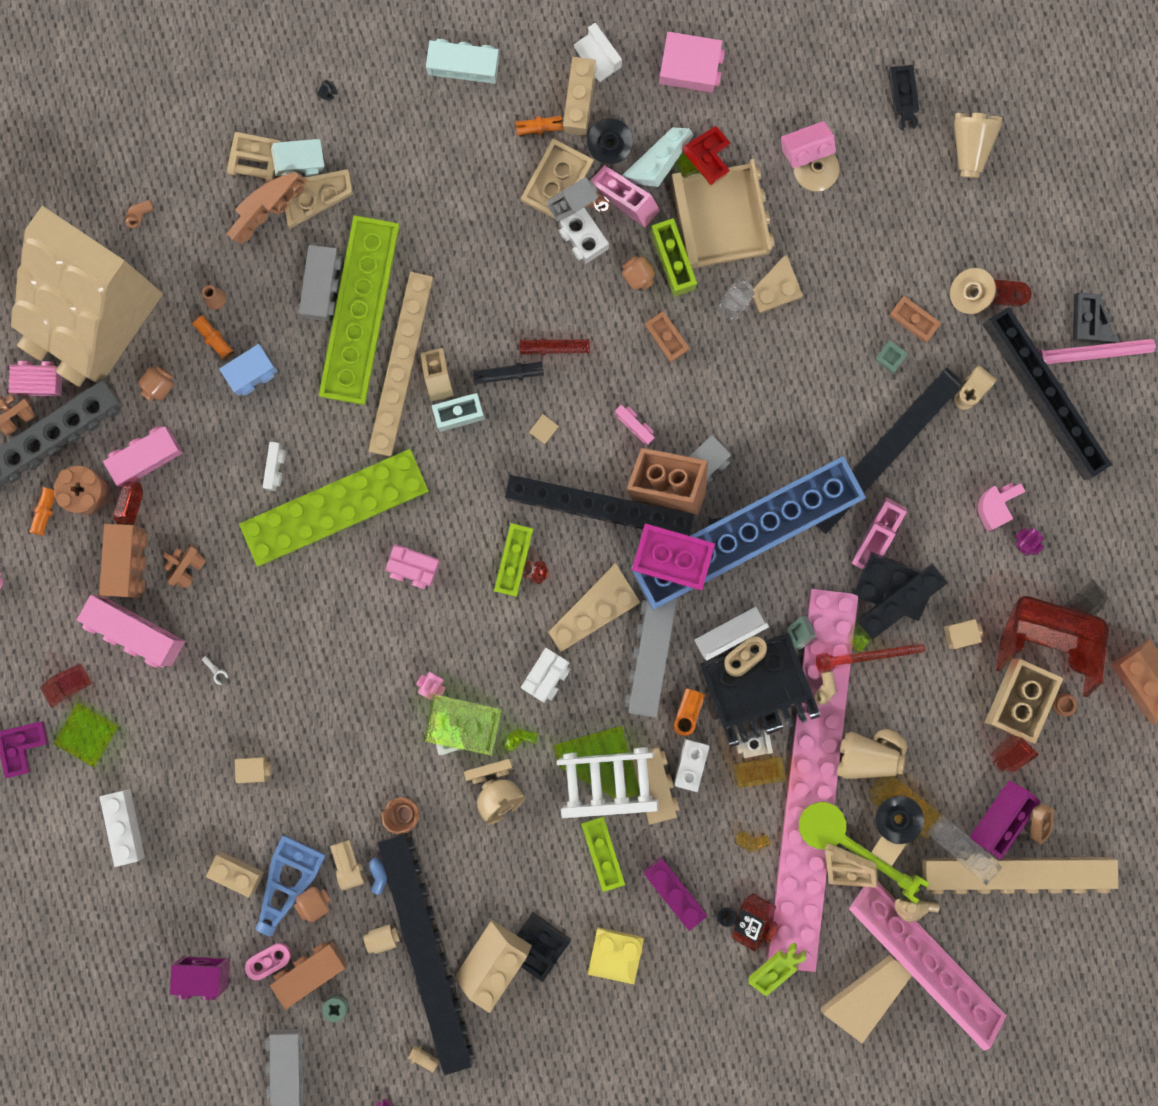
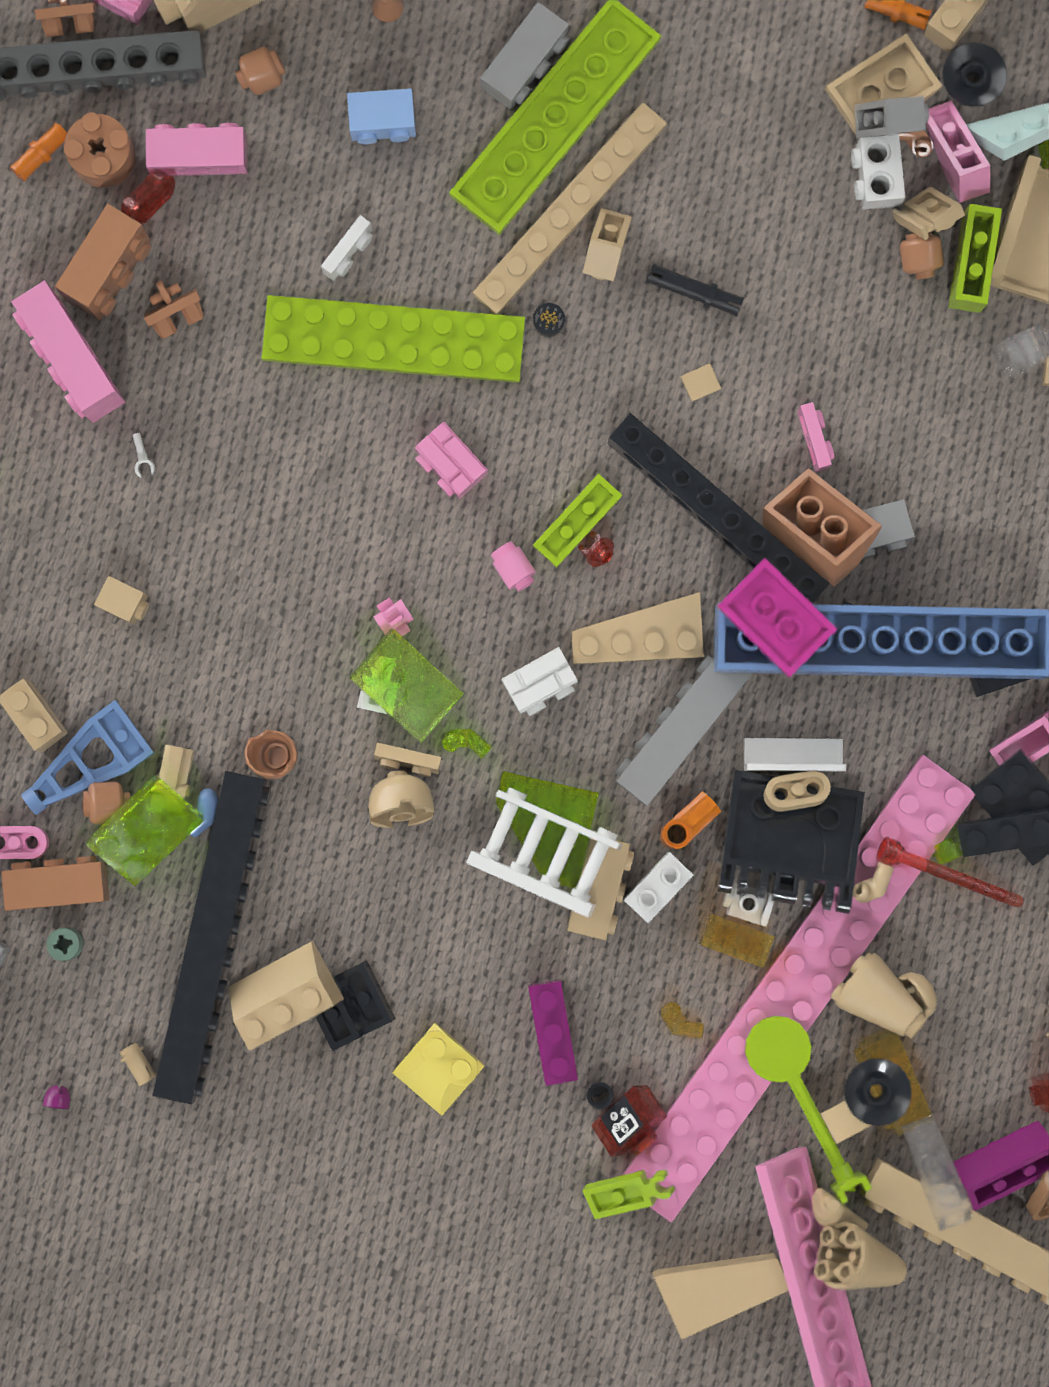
camera: 25 degrees right, 0 degrees up
(212, 337) = (359, 52): orange pin -> none
(346, 908) = (145, 830): none -> clear neon green plate
(382, 939) = (166, 891): tan brick -> none
(426, 442) = (548, 319): none -> black tile
(458, 412) = (608, 304): light aqua brick -> none
(489, 611) = (513, 566): none -> bright pink brick
(554, 346) = (769, 288): clear red pin -> none
(603, 854) = (491, 936): lime plate -> none
(628, 245) = (928, 212): none -> tan plate
(666, 337) = (913, 351): nougat plate -> none
(801, 632) = (881, 800): sand green plate -> none
(849, 869) = (783, 1119): tan wing -> none
(944, 932) = (856, 1260): none -> tan cone

